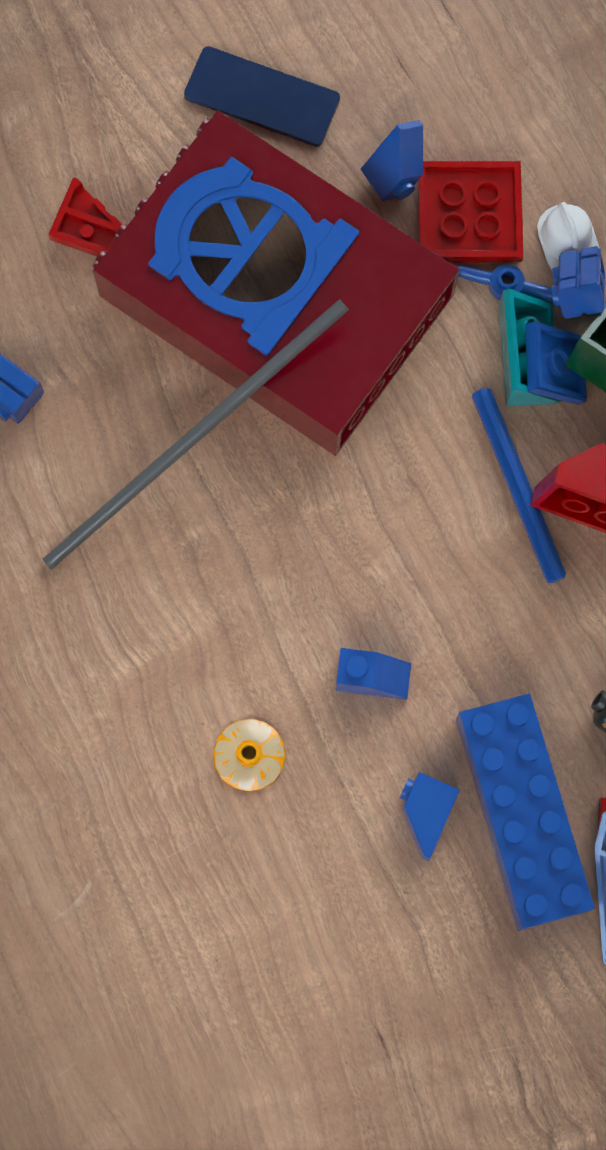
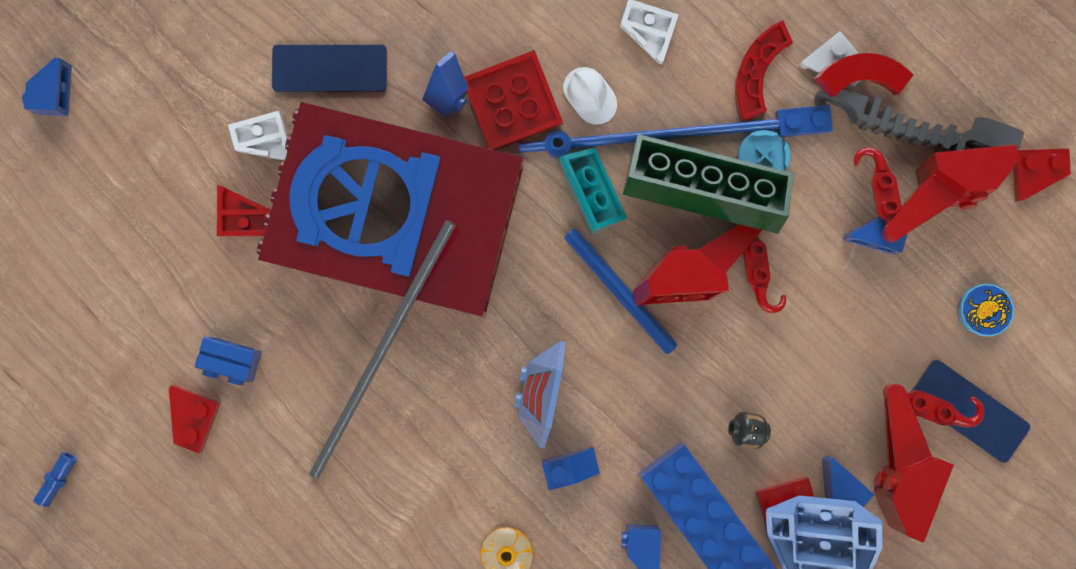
camera: 20 degrees left, 10 degrees up
(148, 141) = (261, 136): none -> white wing
(367, 563) = (540, 392): none -> medium blue wedge
(546, 355) = (607, 190): blue tile -> none
(579, 282) = (611, 129): blue brick -> none

